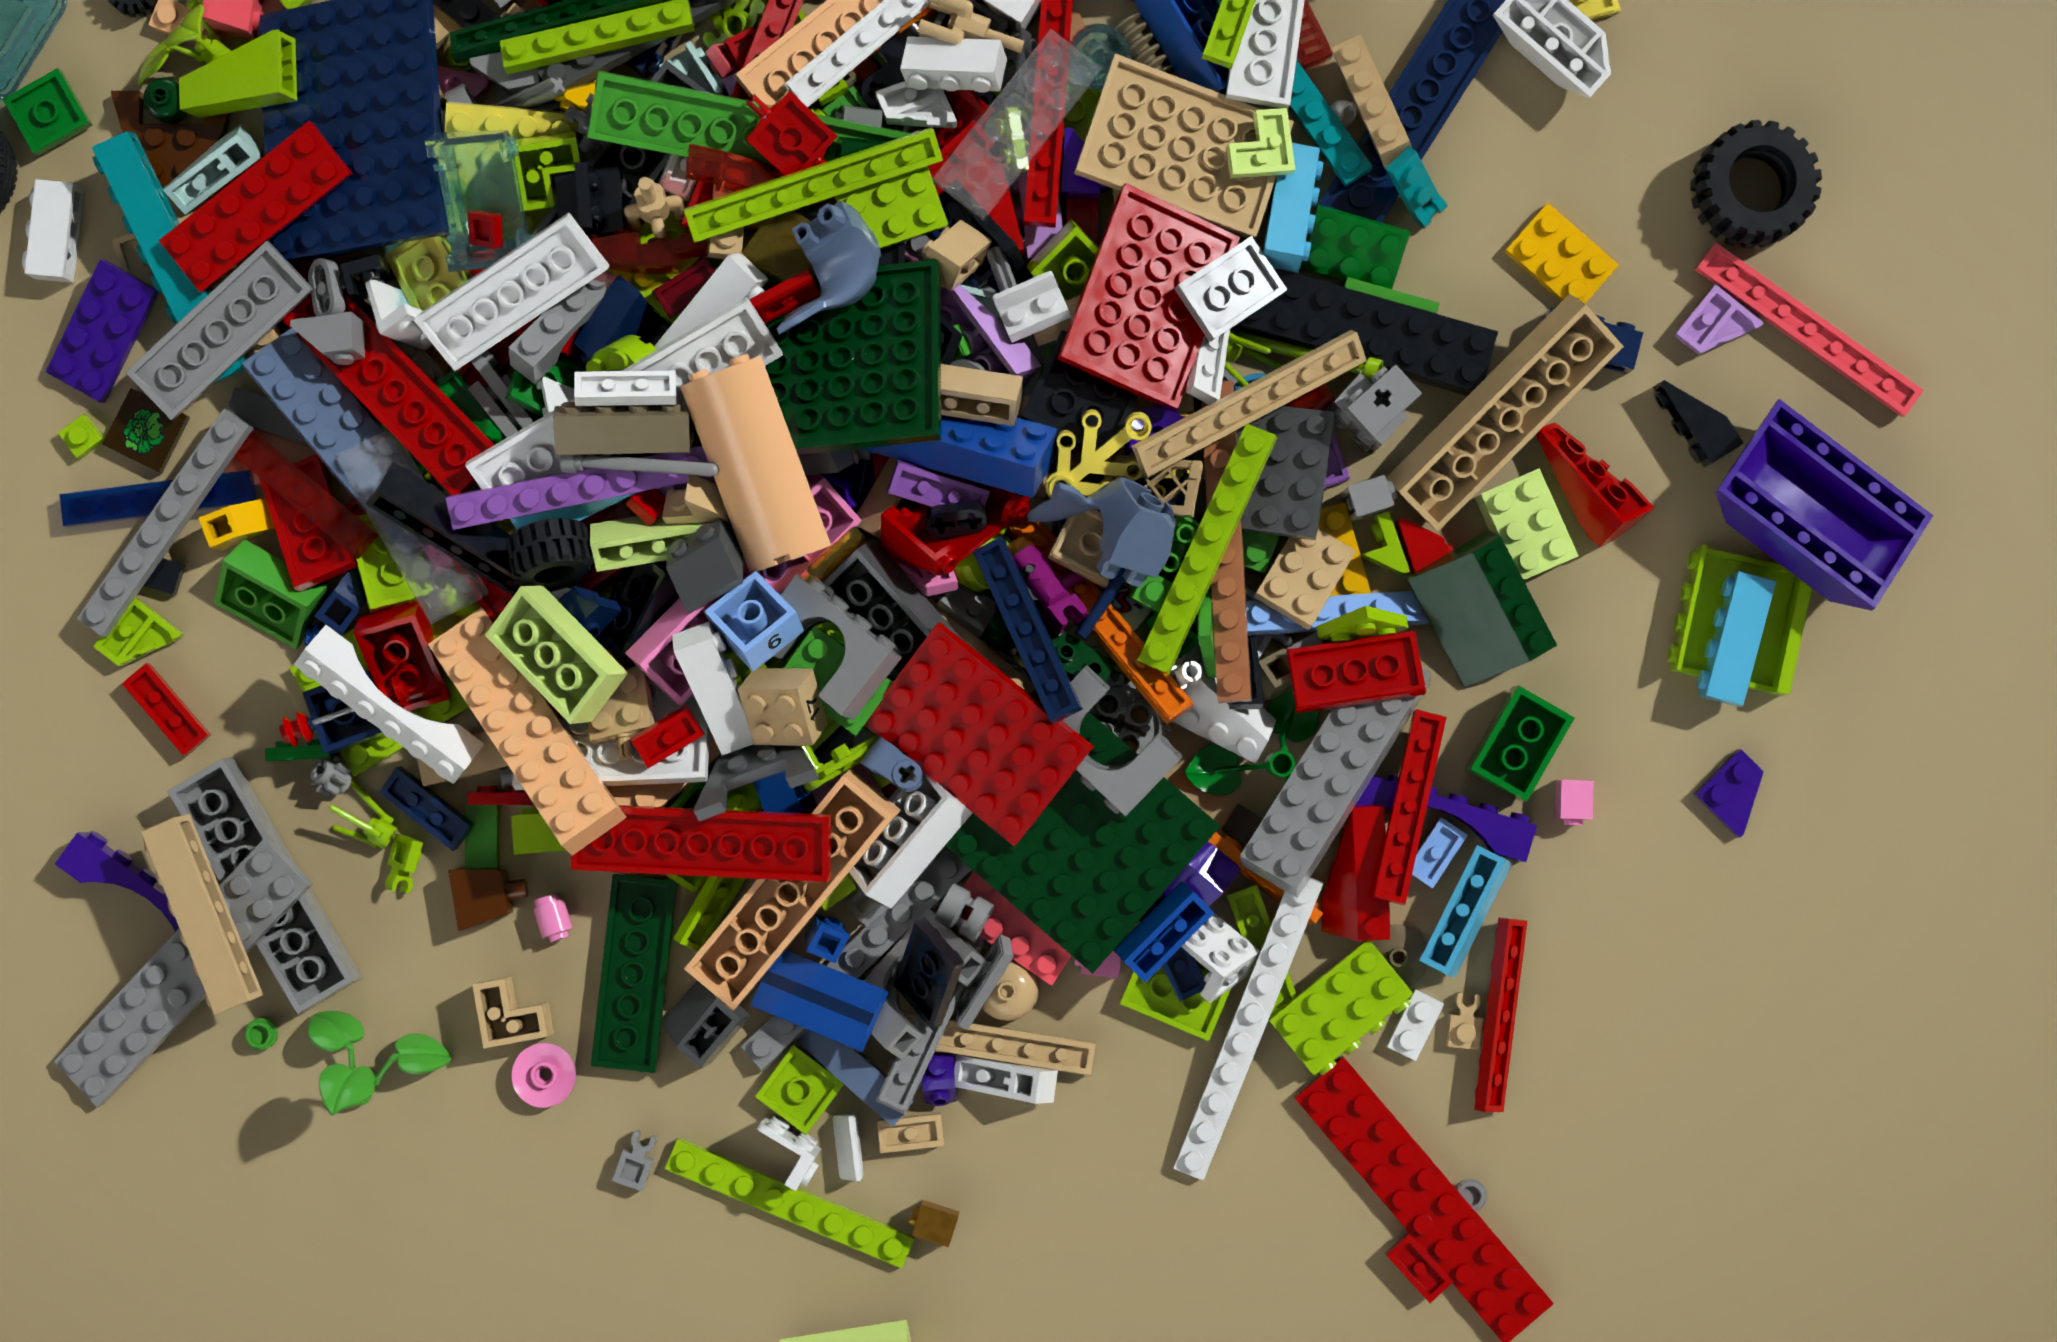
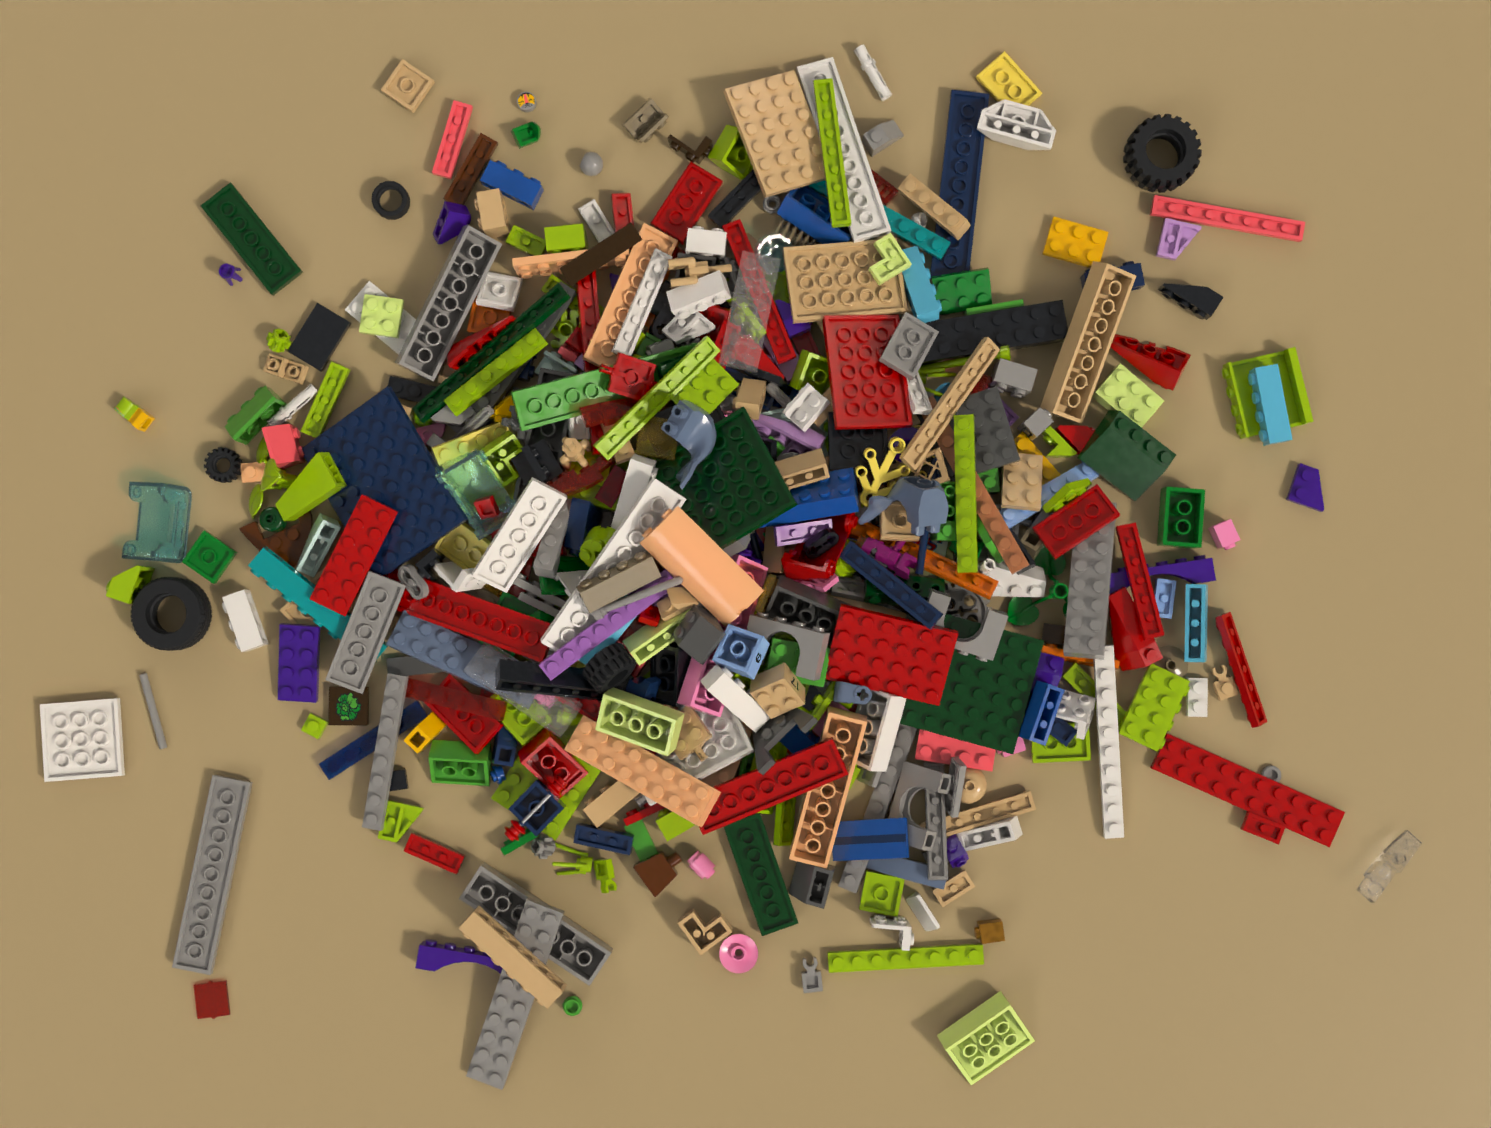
camera: 30 degrees left, 0 degrees up
(335, 335) = (431, 605): light grey slope -> none
(335, 666) = (521, 786): white arch -> none
(352, 1085) = (639, 1010): bright green plant -> none
(625, 388) = (610, 558): white plate -> none
(667, 736) = (721, 737): red plate -> none
(785, 296) = (671, 465): red tile -> none
(826, 932) = (859, 801): blue brick -> none
(928, 973) = (924, 797): black plate -> none
(954, 906) = (919, 754): light grey wheel -> none
(1395, 387) = (1028, 359): light grey brick -> none
(1415, 187) = (979, 242): teal plate -> none
(1820, 510) = (1284, 314): dark purple slope -> none

